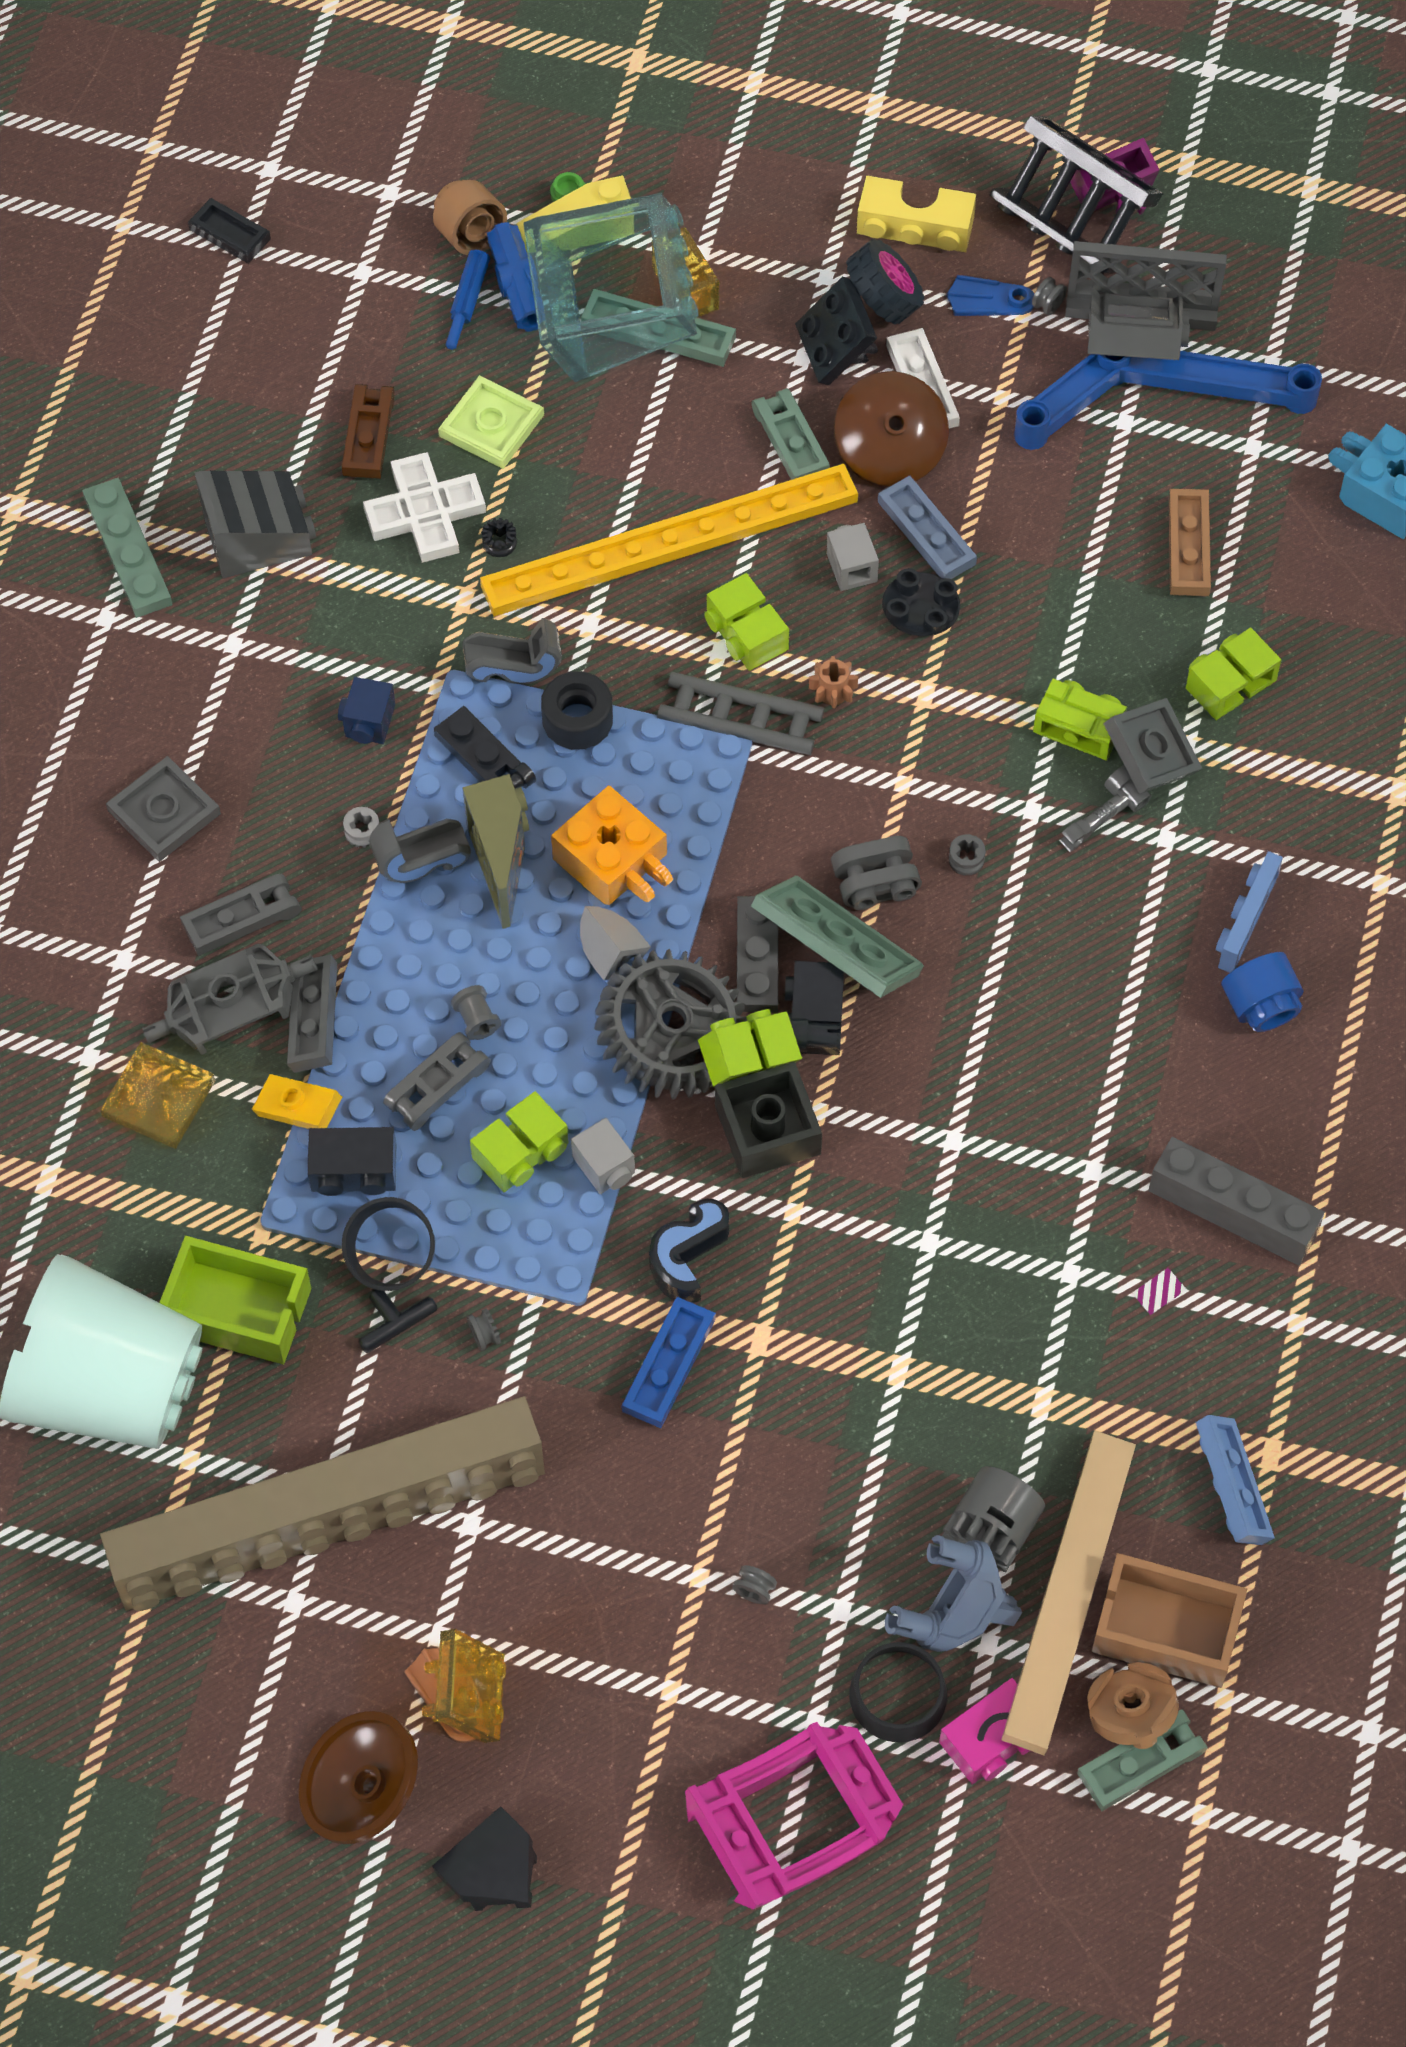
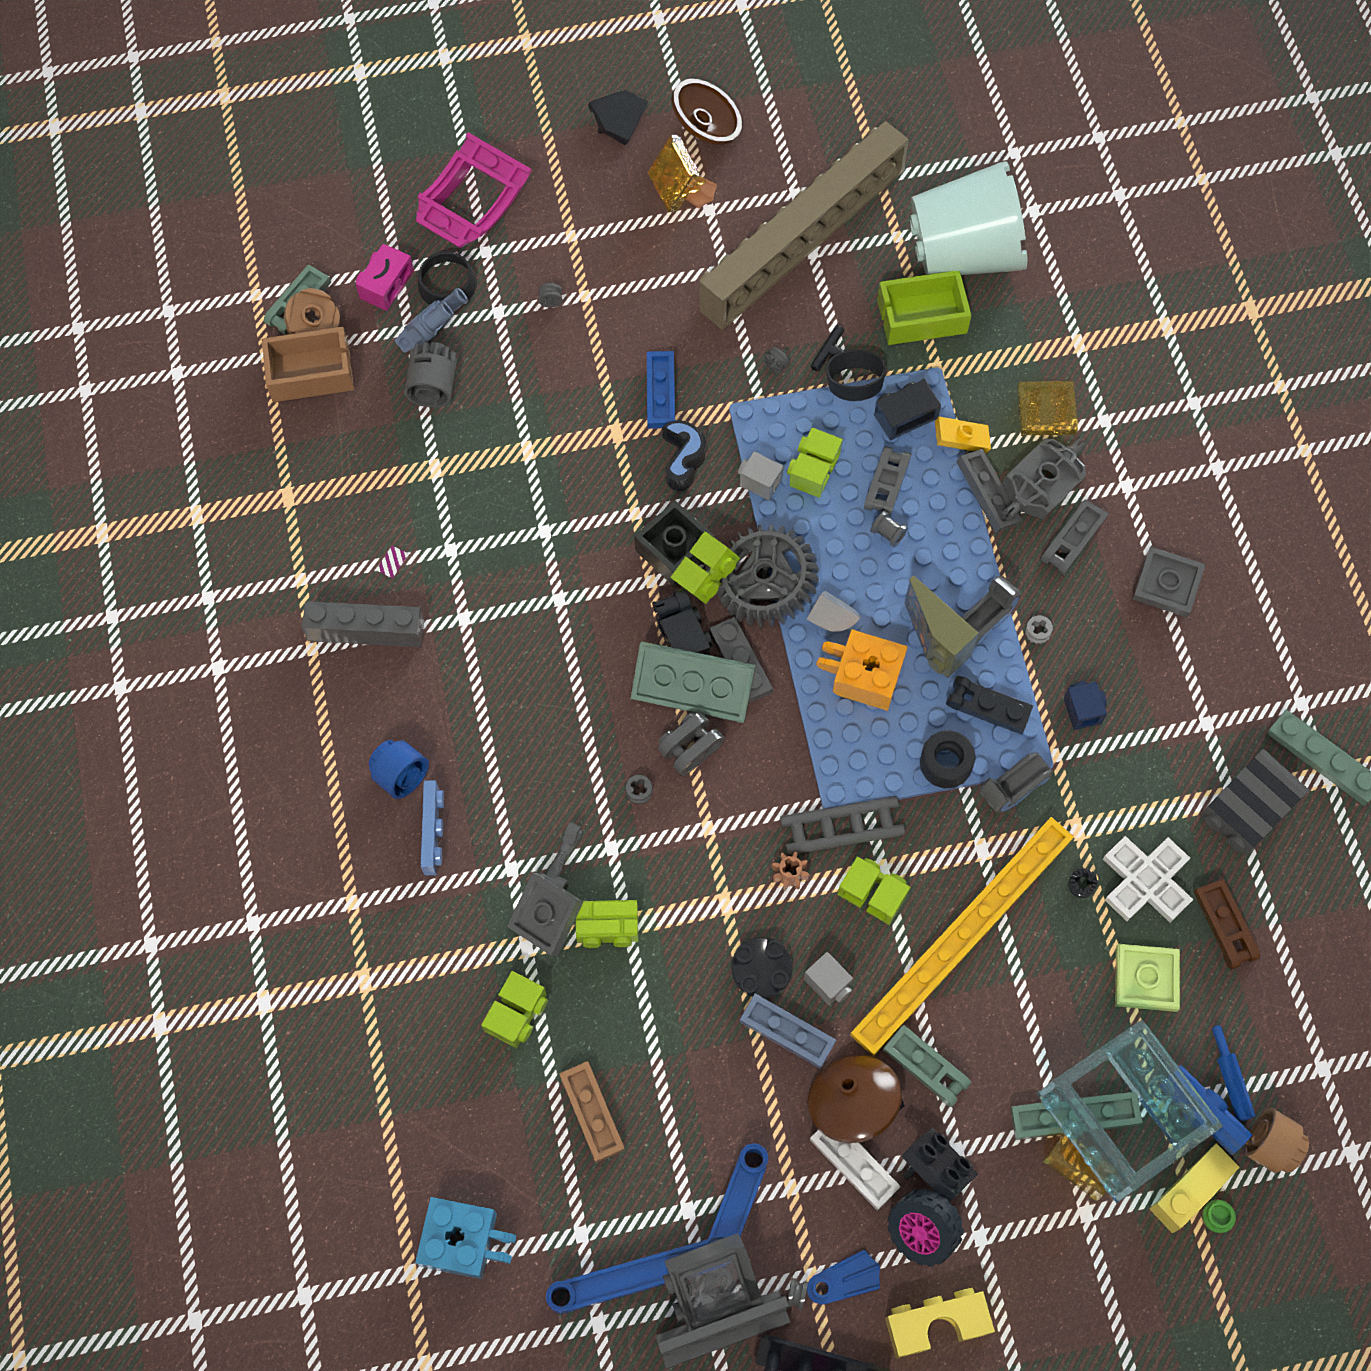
camera: 155 degrees right, 5 degrees up
(1068, 1593) = (371, 359): tan tile -> none
(1234, 1480) = (301, 462): medium blue plate -> none

